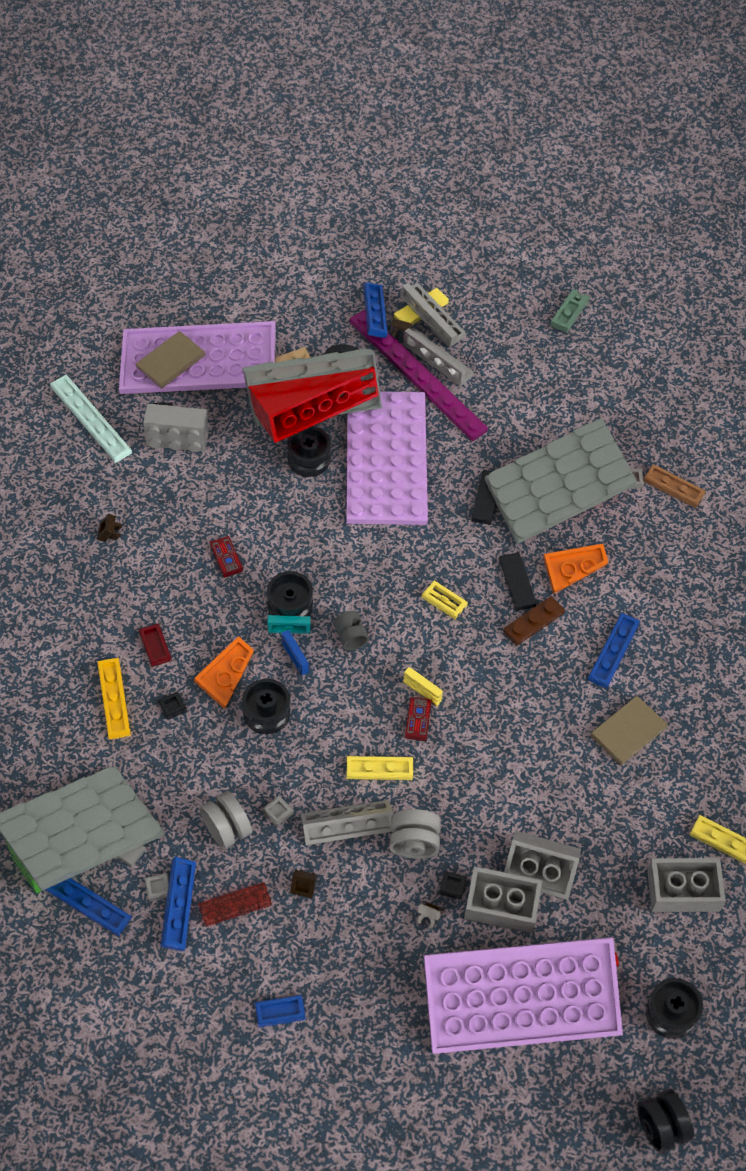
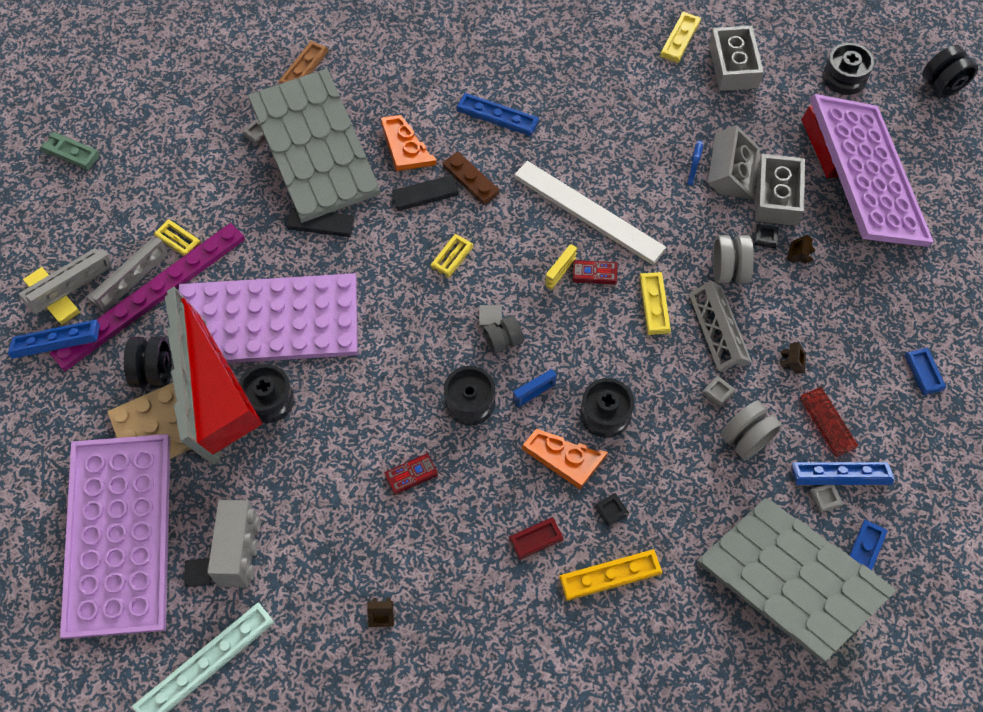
camera: 90 degrees left, 5 degrees up
(170, 359) = (122, 564): dark tan tile -> none
(294, 624) = (500, 396): teal tile -> none
(375, 626) = (489, 314): none -> light grey tile
(401, 325) = (82, 309): dark brown tile -> none
(480, 395) = (189, 247): none -> light yellow tile
(488, 722) = (590, 213): none -> white tile
(538, 819) = (696, 158): none -> blue helmet
(629, 730) = (583, 103): dark tan tile -> none

